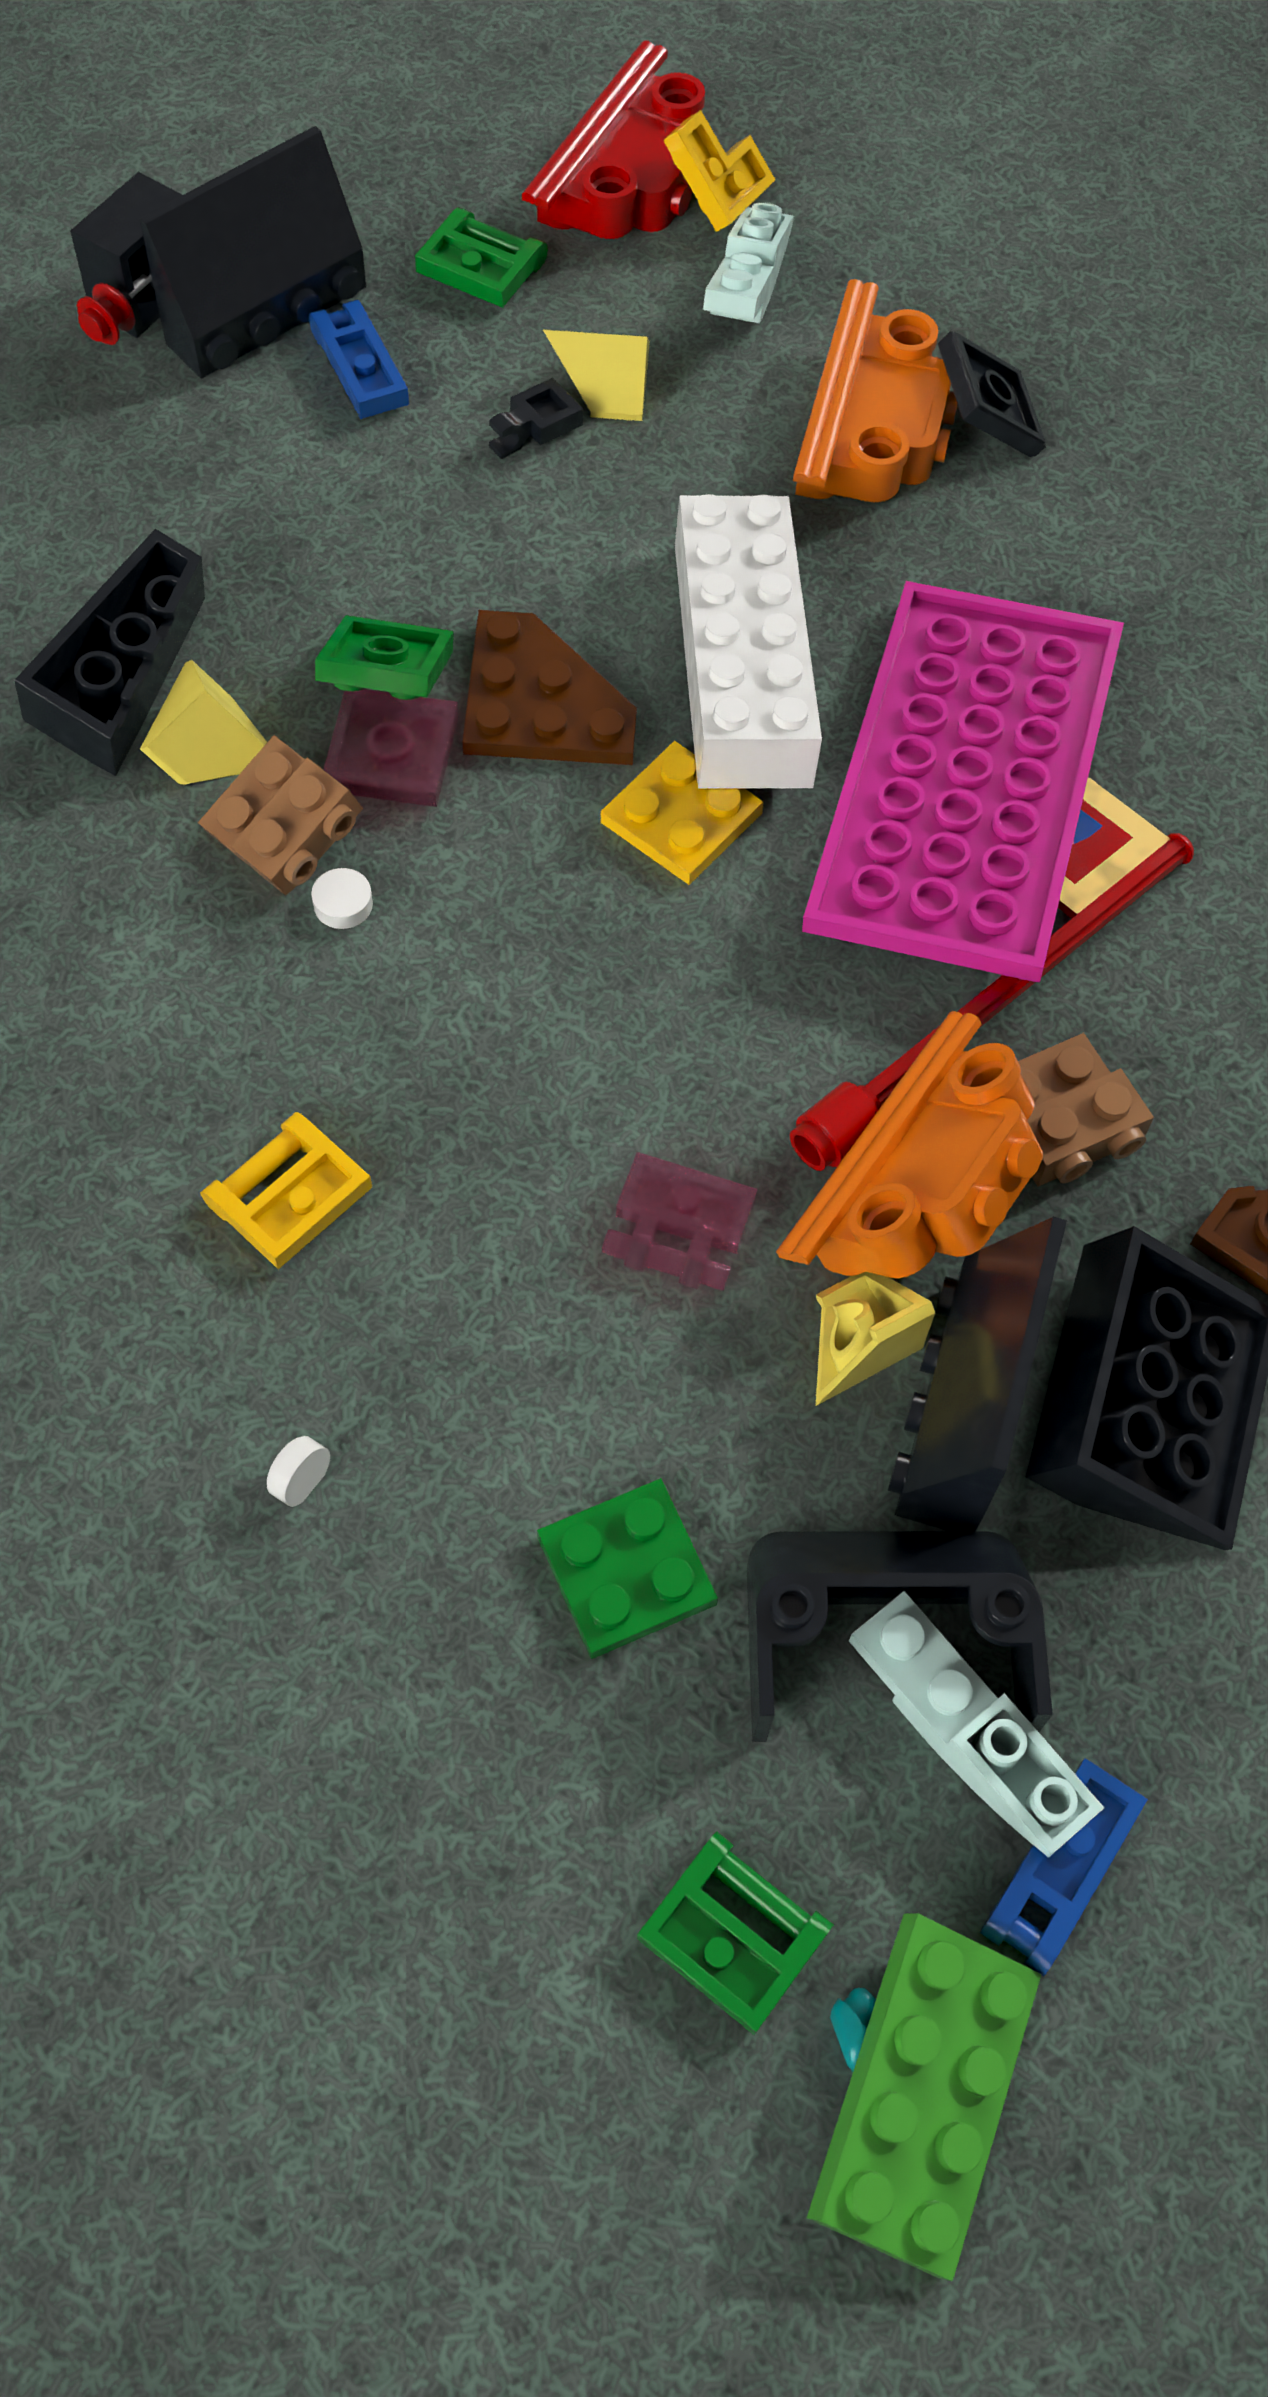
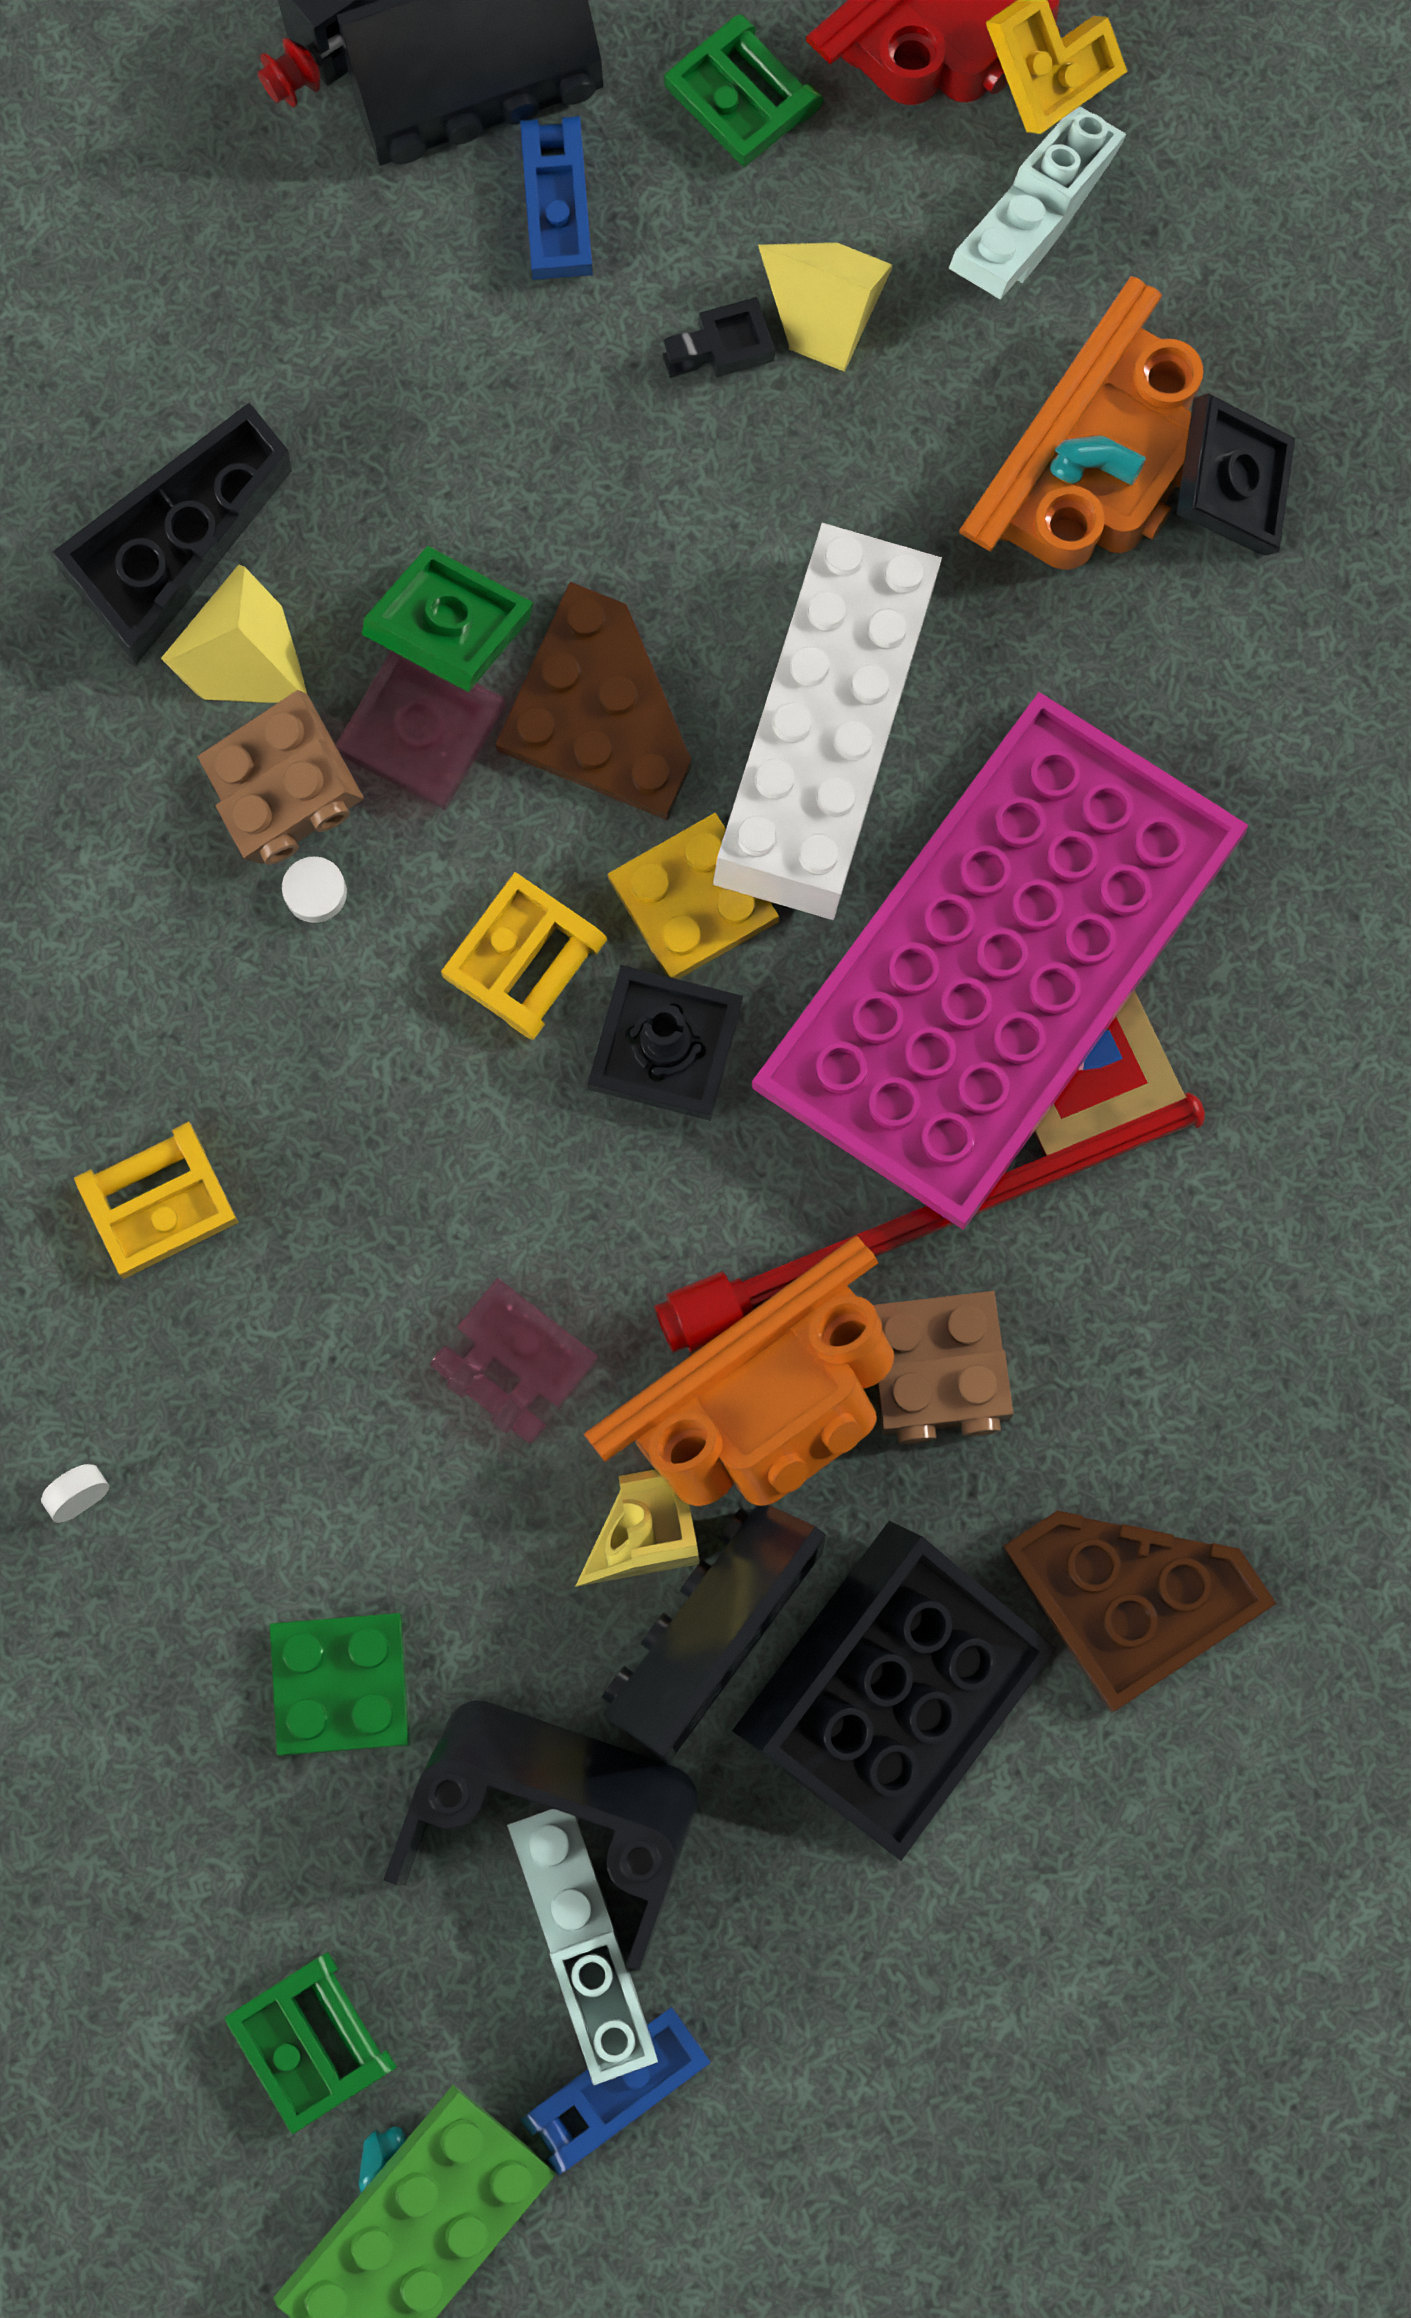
camera: 25 degrees right, 15 degrees up
(533, 888) = (506, 944): none -> yellow plate
(706, 906) = (651, 1005): none -> black plate
(881, 396) = (1098, 453): none -> teal arm

